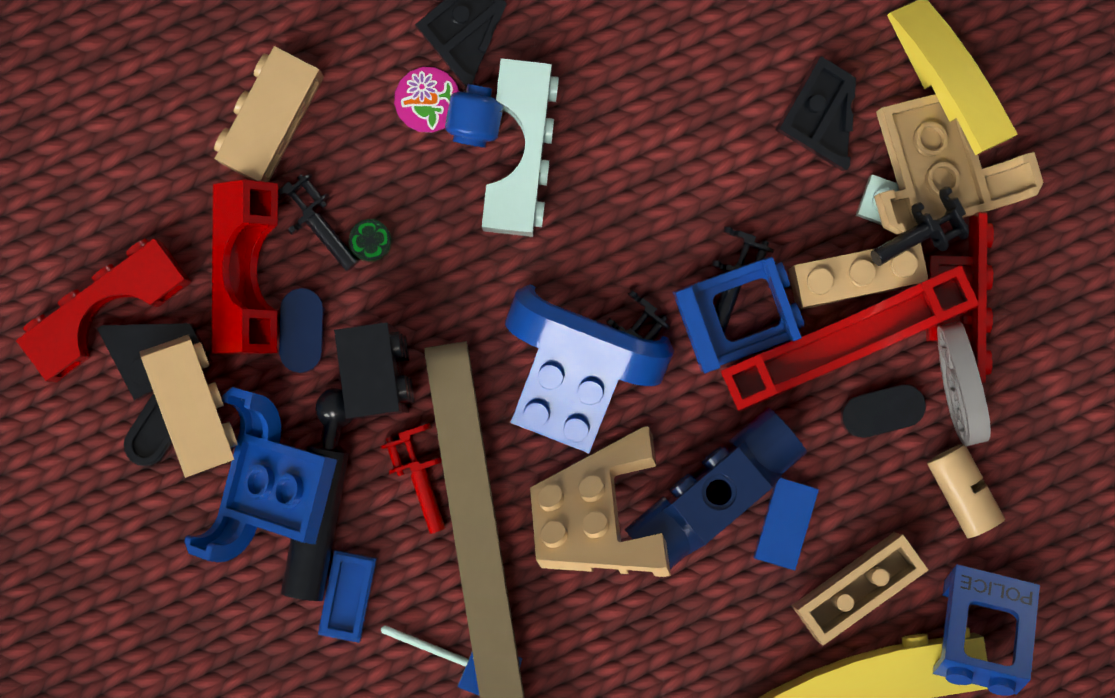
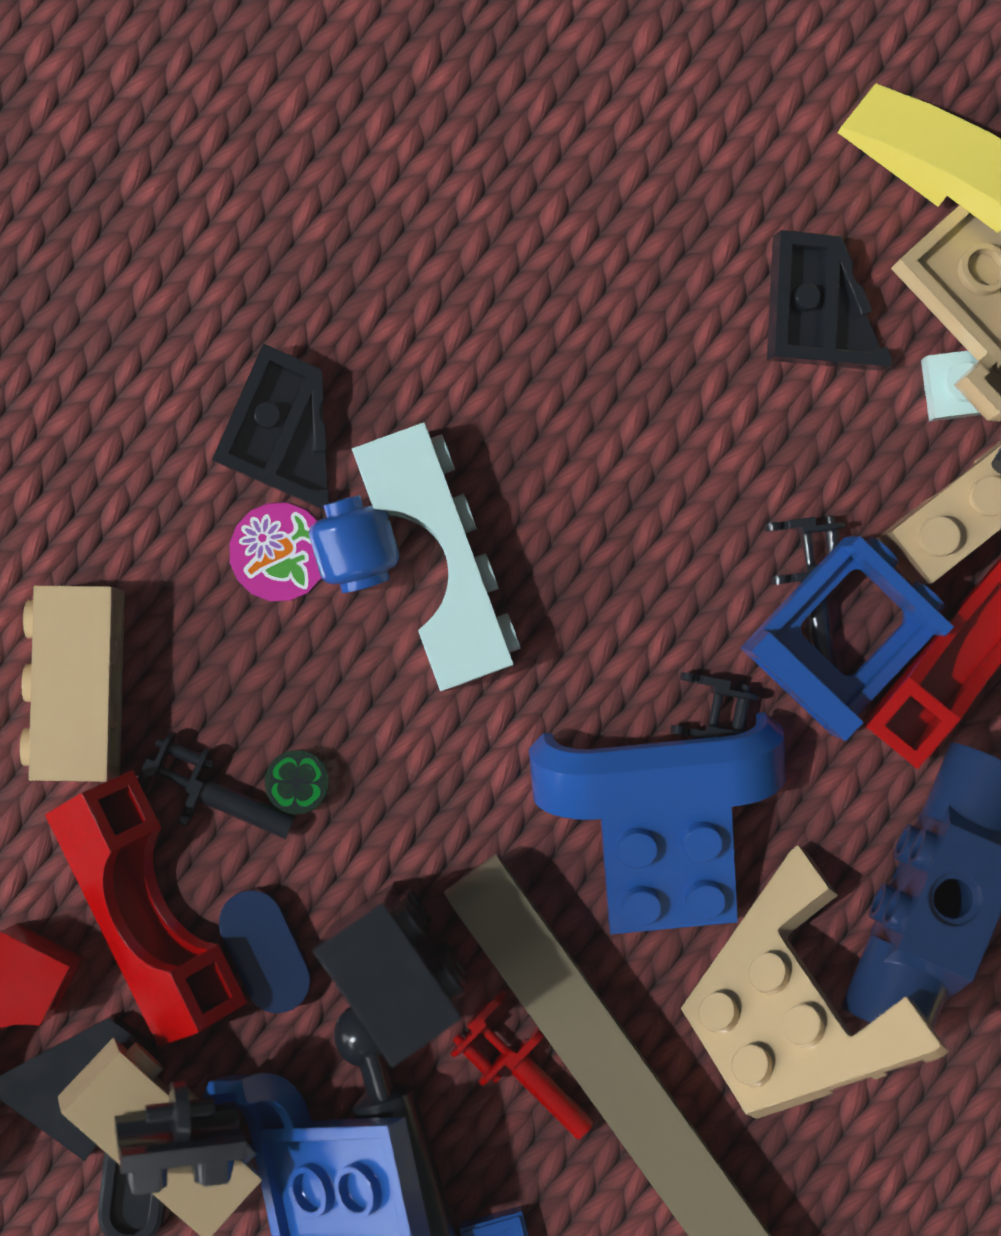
camera: 25 degrees left, 0 degrees up
(201, 401) = (179, 1136): none -> black hips

